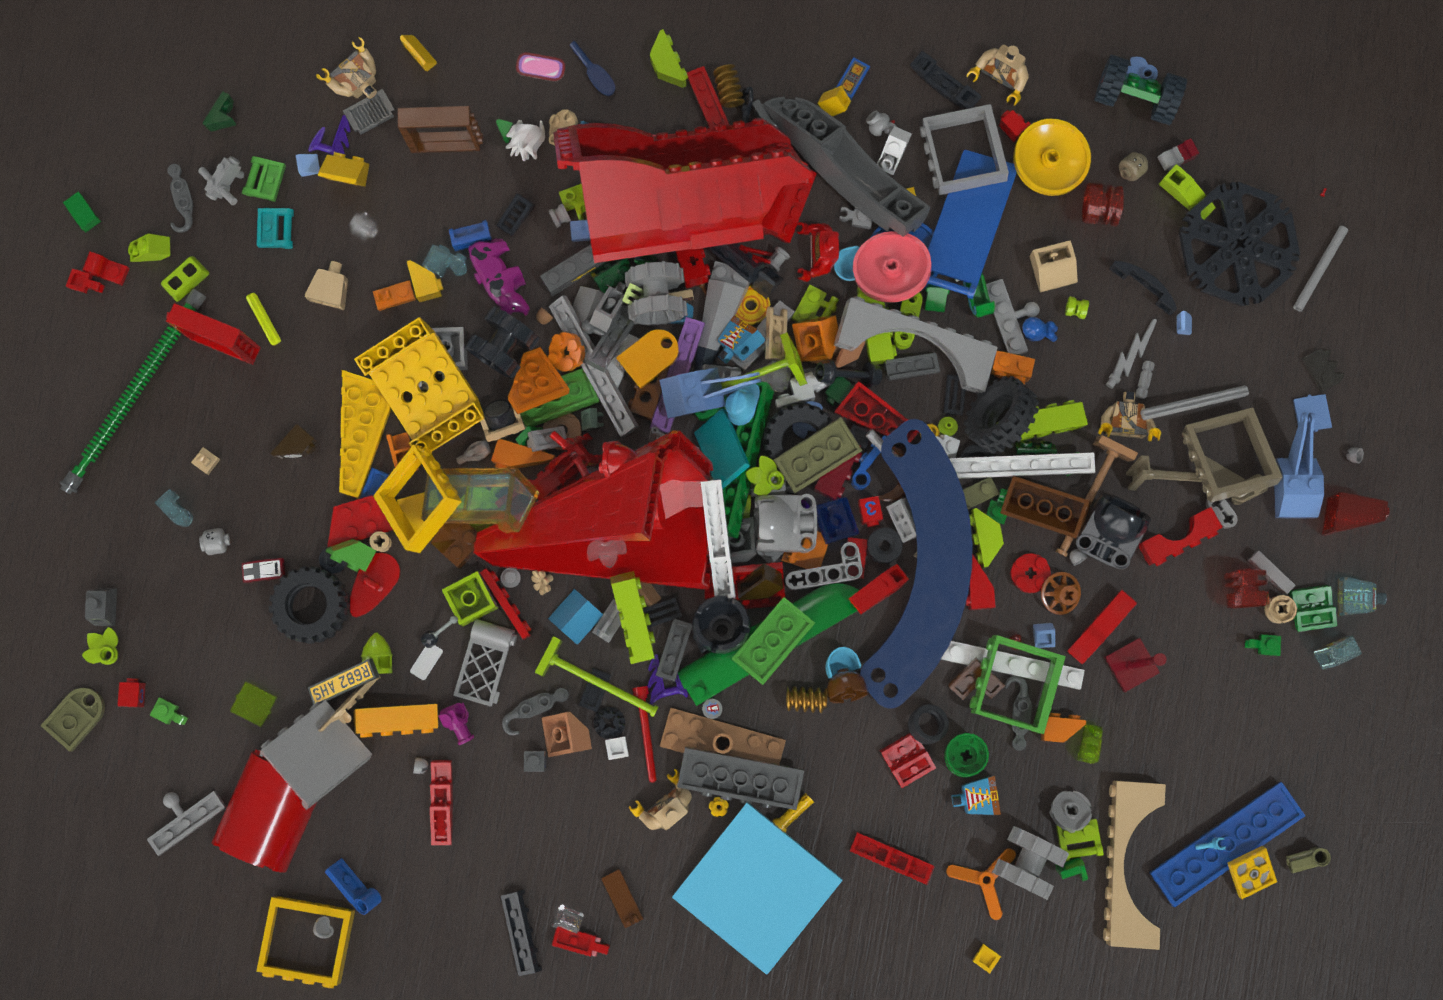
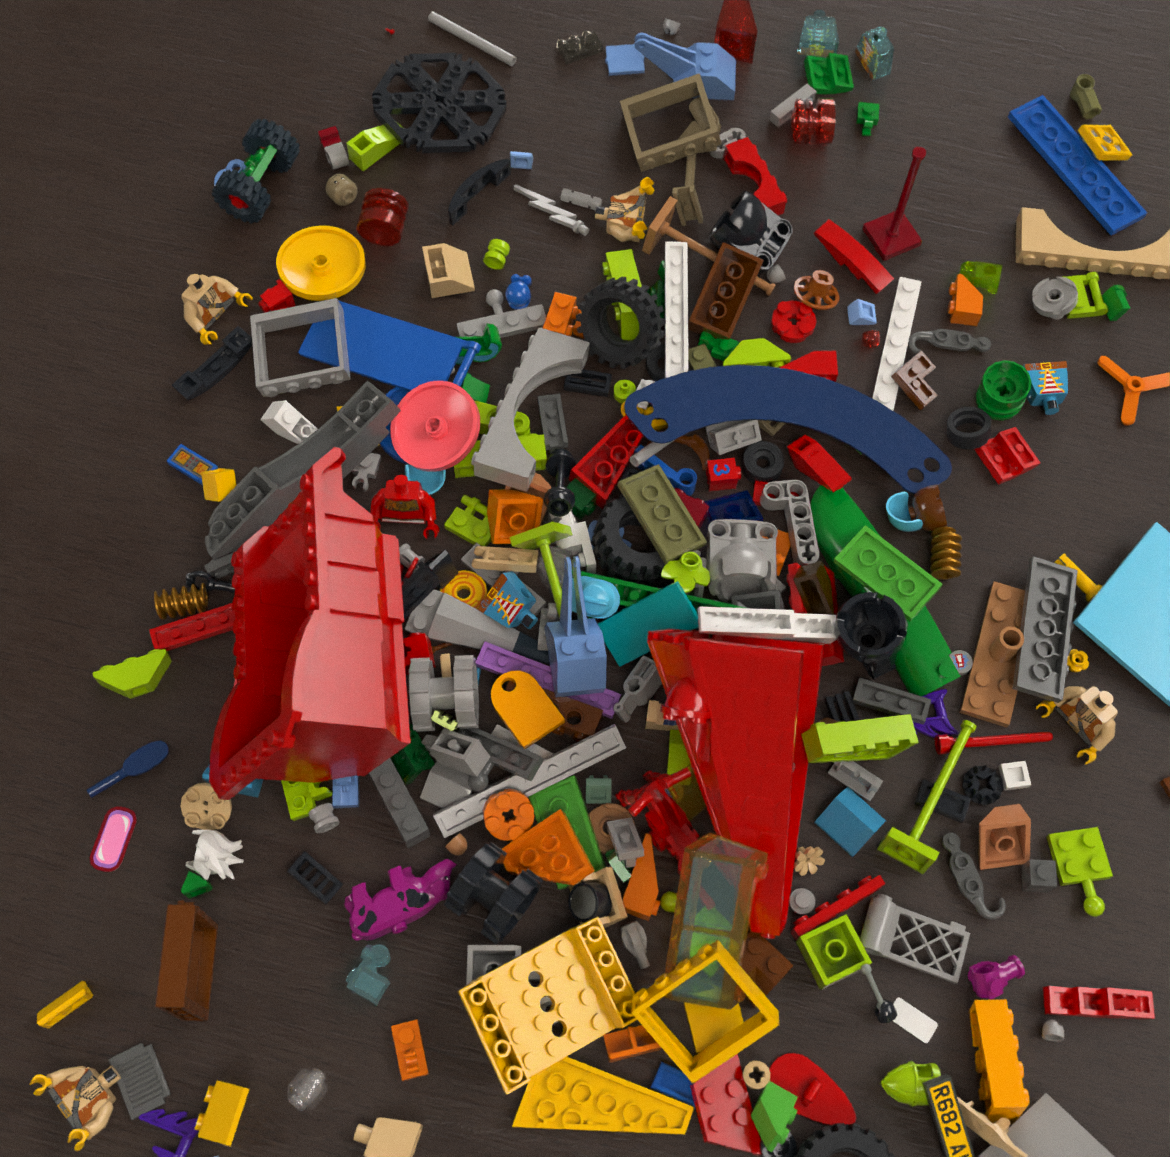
camera: 90 degrees left, 15 degrees down
(424, 282) = (395, 1004): yellow slope -> none
(469, 235) = (336, 938): blue hinge -> none
(552, 797) = (1081, 859): none -> lime plate
(879, 122) = (254, 436): light grey animal -> none
(892, 858) = (1120, 477): red slope -> none
(1030, 862) = (1119, 332): light grey piece -> none
(1048, 691) = (932, 307): bright green window -> none
(1195, 402) = (611, 153): light grey axle -> none
(1213, 844) = (1079, 171): medium azure hand -> none
(1288, 605) = (836, 92): tan wheel -> none

